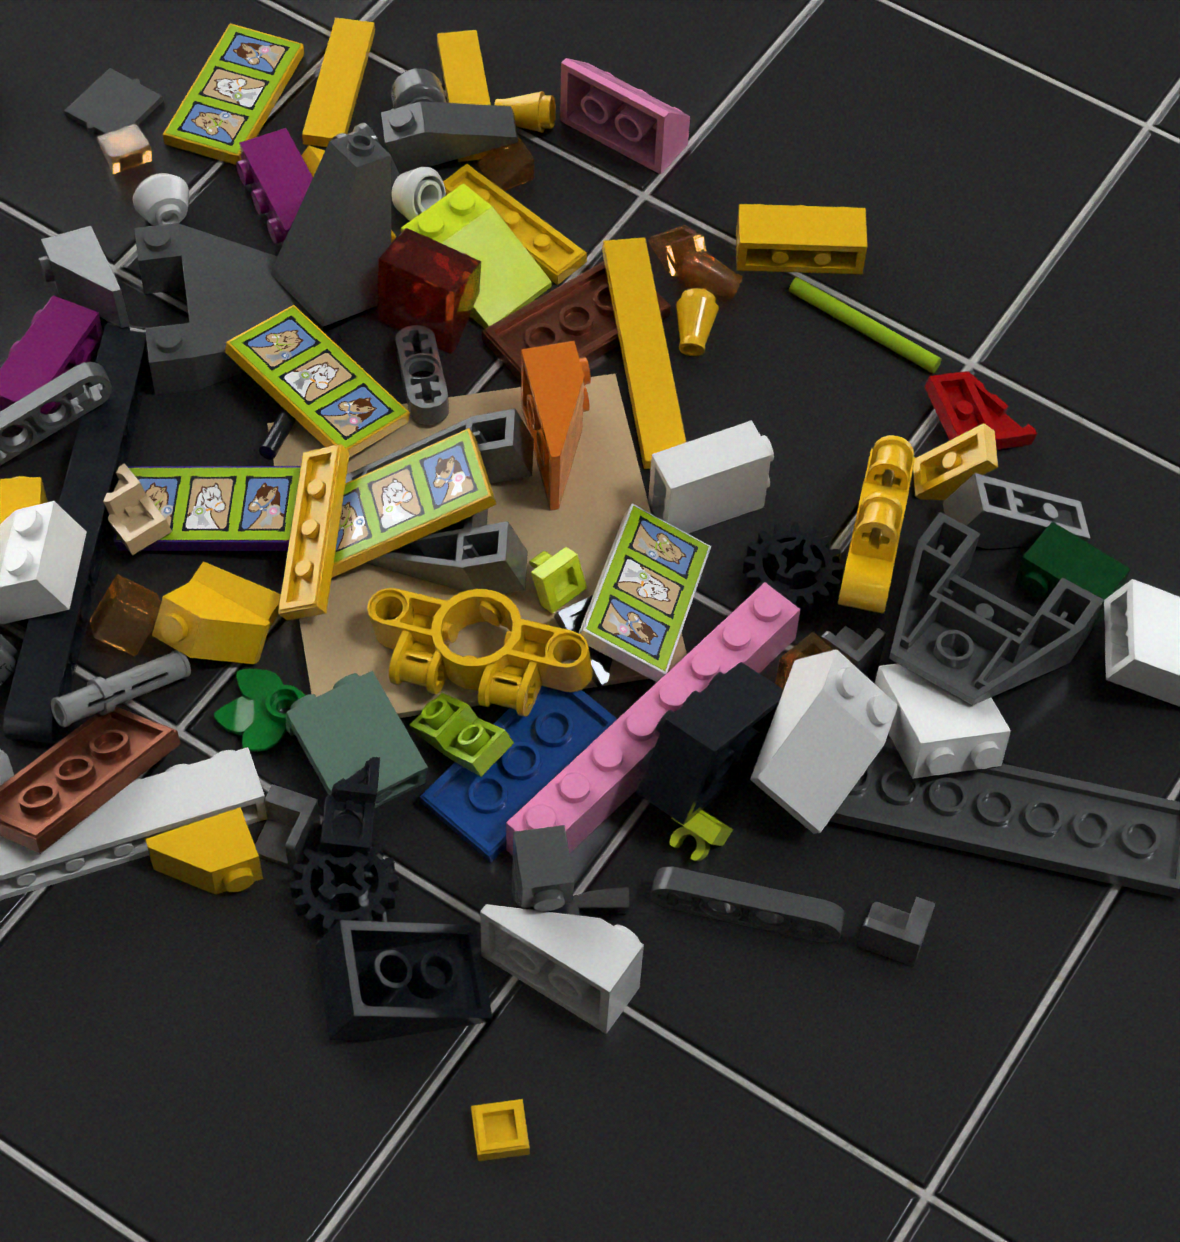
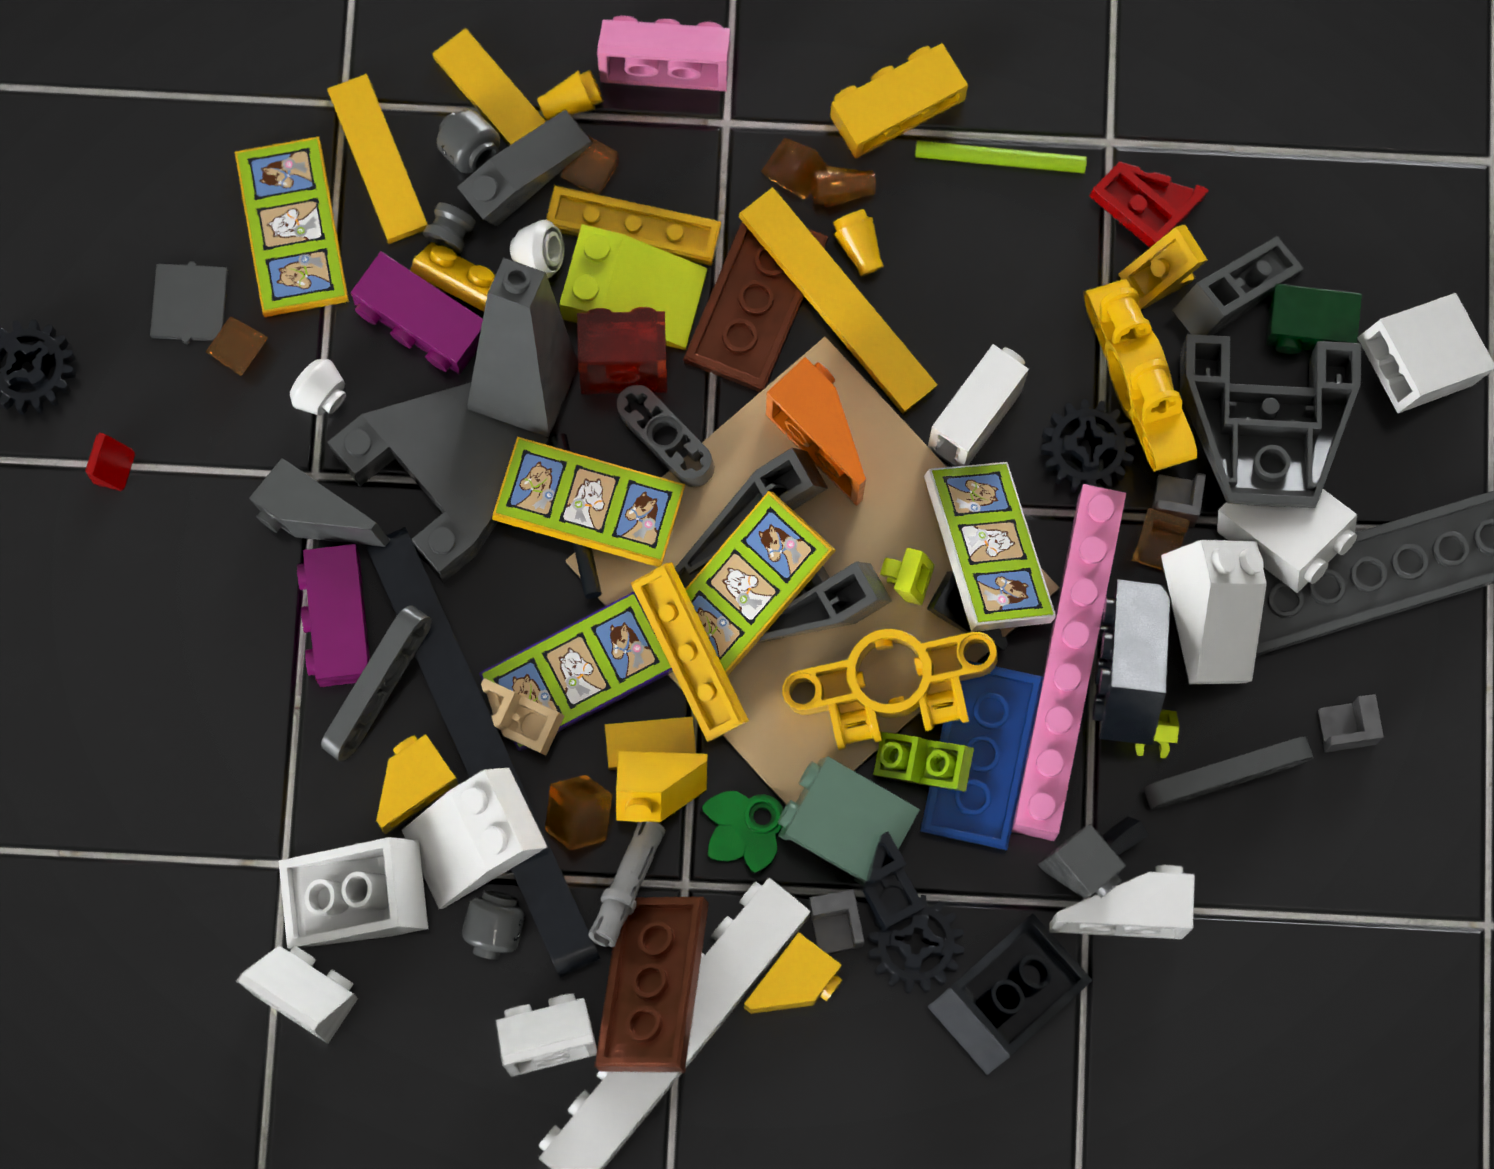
camera: 30 degrees left, 20 degrees up
(500, 1130) = (1154, 1065): yellow tile -> none

